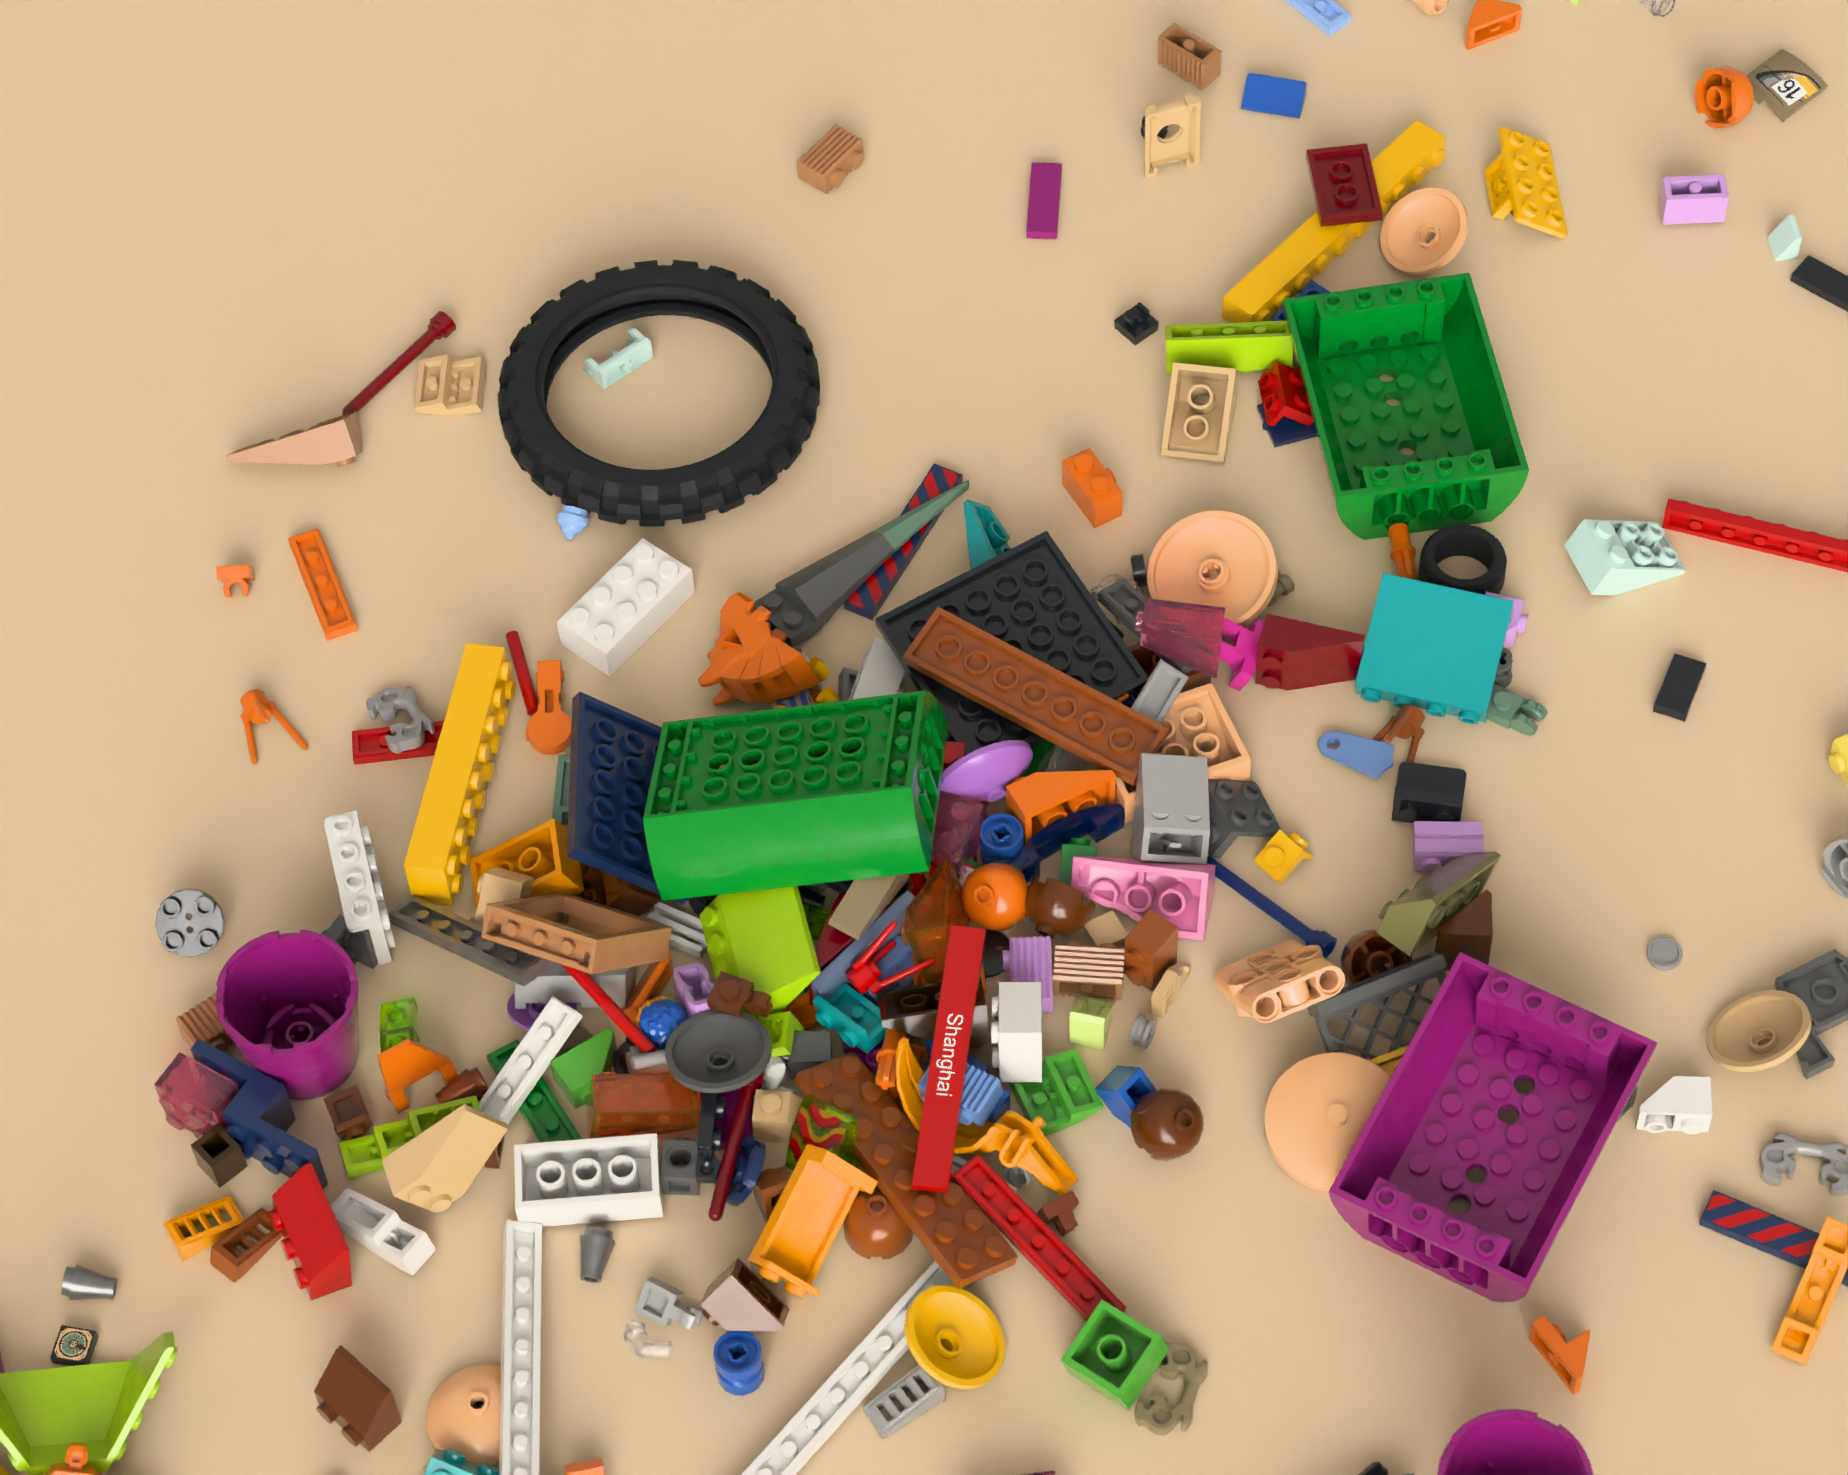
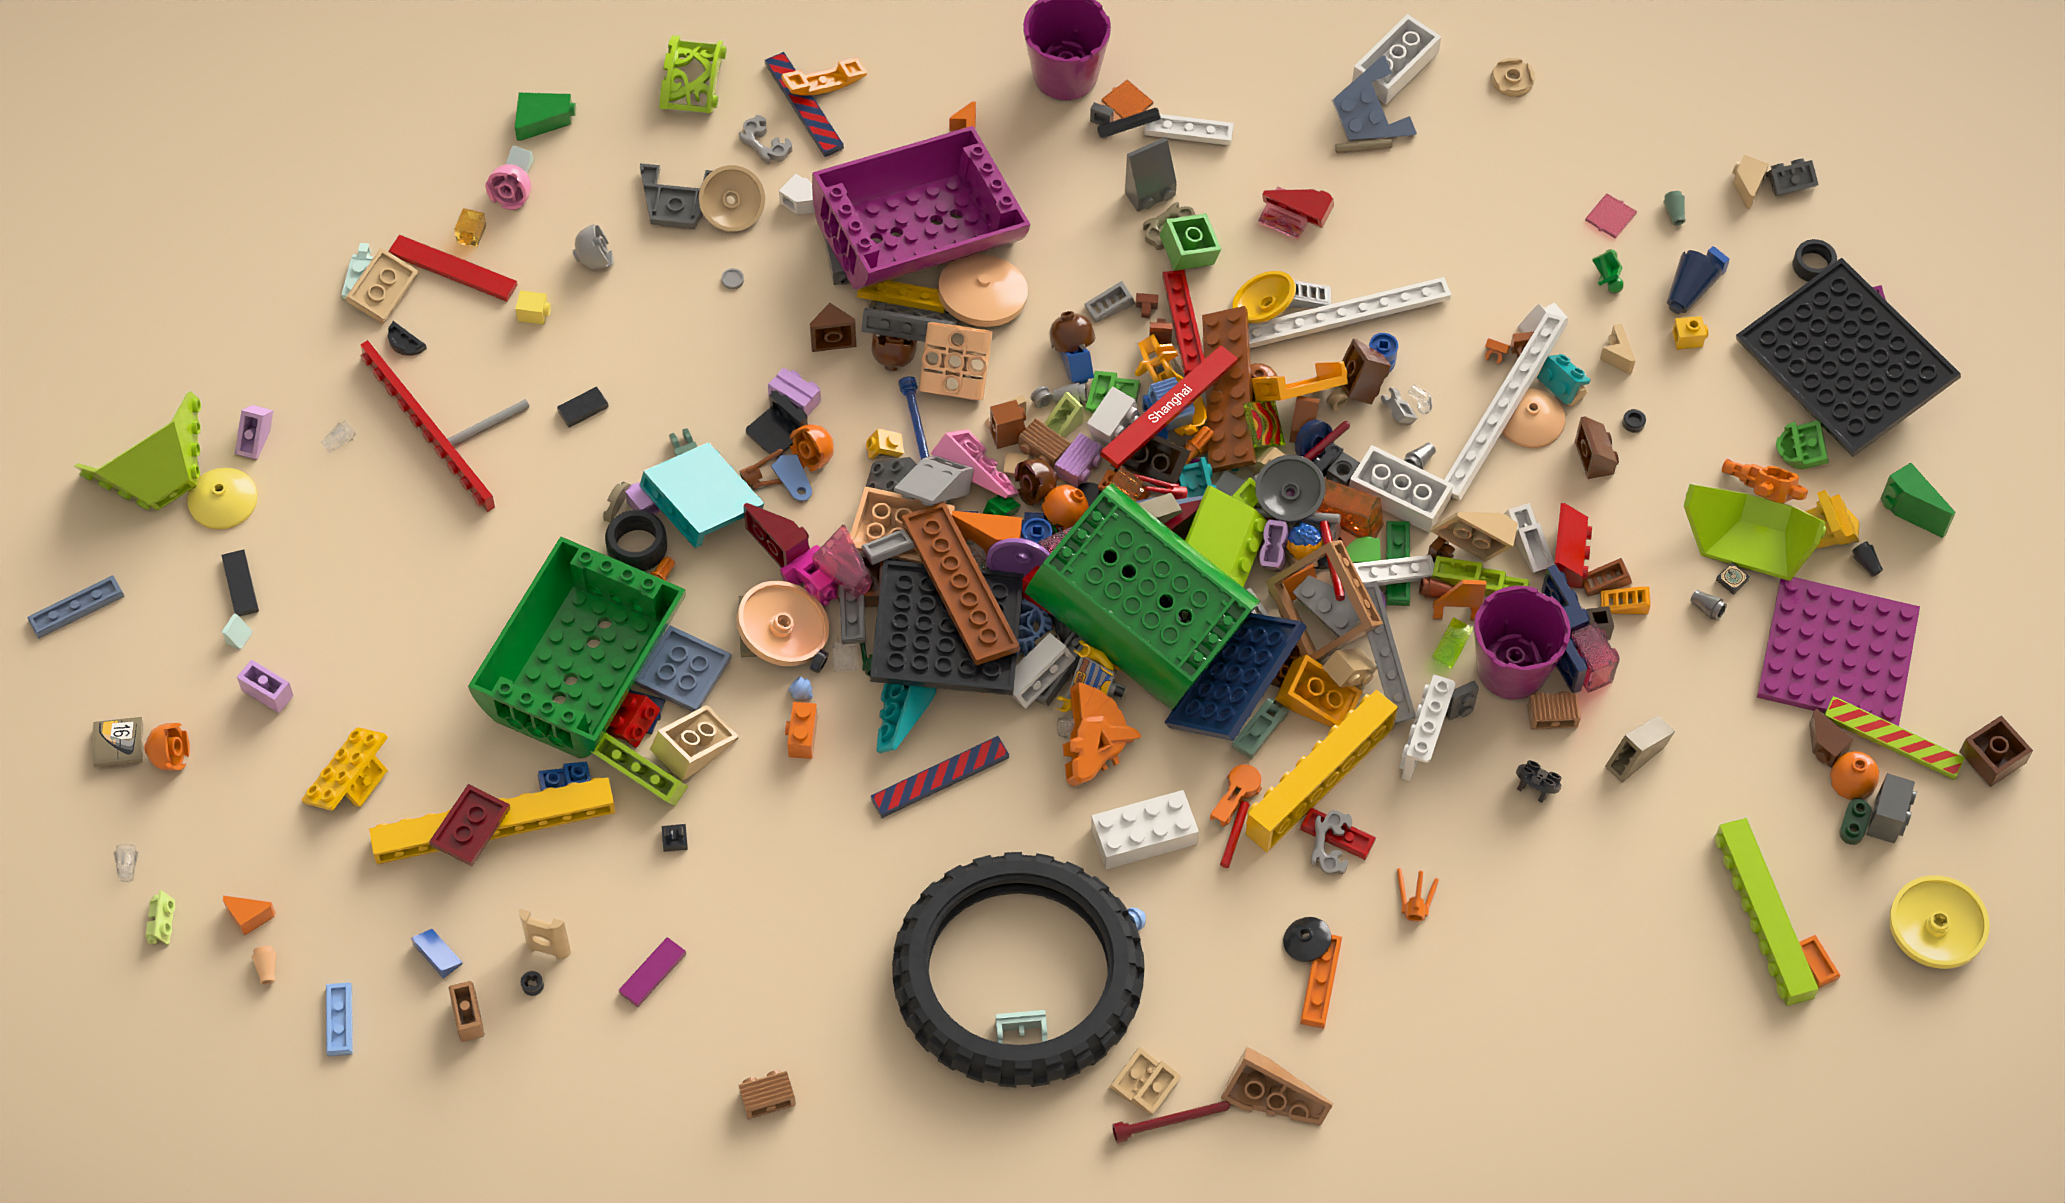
camera: 150 degrees left, 5 degrees up
(80, 1038) = (1639, 747): none -> dark tan slope
(235, 575) = (1375, 1014): orange tile -> none
(363, 610) = (1313, 945): none -> black dish
(736, 994) = (1259, 509): reddish brown plate -> none
(815, 593) = (1019, 769): dark grey plate -> none
(1105, 1058) = (1077, 390): none -> light grey cone
(1110, 1242) = (1146, 302): none -> copper tile
(1134, 532) = (801, 689): none -> light blue plate
(1150, 1240) = (1112, 292): none -> light grey slope
(1240, 1411) = (1150, 175): none -> dark grey slope
(1280, 478) = (683, 669): none -> sand blue plate
(1361, 790) = (812, 446): none -> orange cylinder
(1415, 222) = (452, 758): light nougat dish -> none
(1434, 901) = (836, 342): olive slope -> none
(1533, 603) = (616, 498): none -> dark tan tile
(1622, 555) = (539, 494): light aqua slope -> none
(1766, 603) = (485, 424): none -> light grey bar

